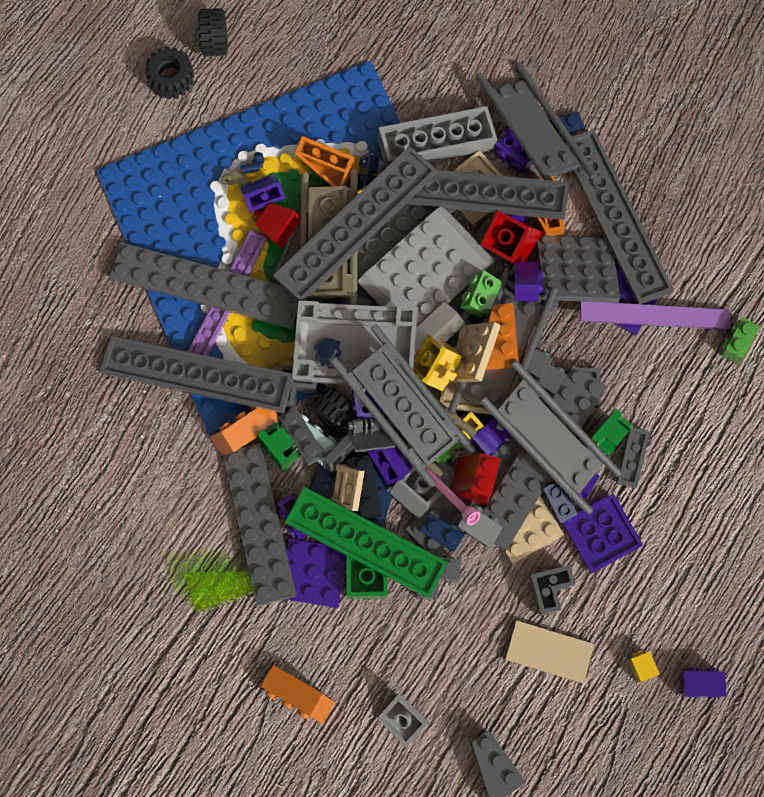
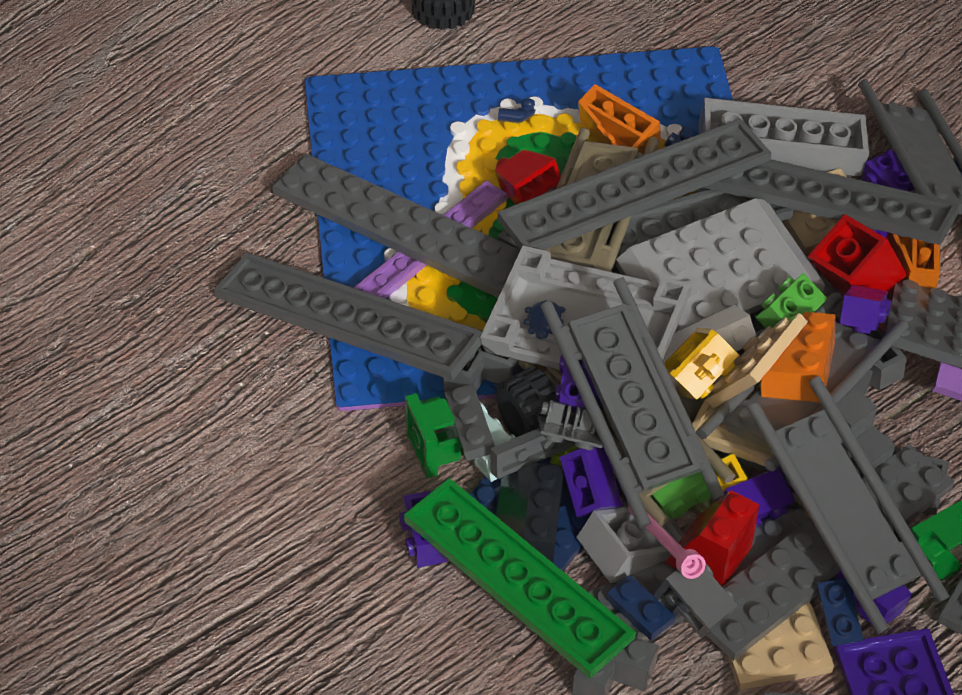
camera: 20 degrees right, 25 degrees down
(217, 588) = (273, 591): clear neon green wedge -> none
(235, 178) = (487, 121): olive arm -> none
(243, 429) = (383, 397): orange wedge -> none
(259, 525) = (366, 531): dark grey plate -> none
(262, 192) = (513, 139): dark purple brick -> none
(316, 573) = (424, 617): dark purple plate -> none
(347, 487) = (517, 494): tan plate -> none
(365, 582) = (498, 640): green brick -> none

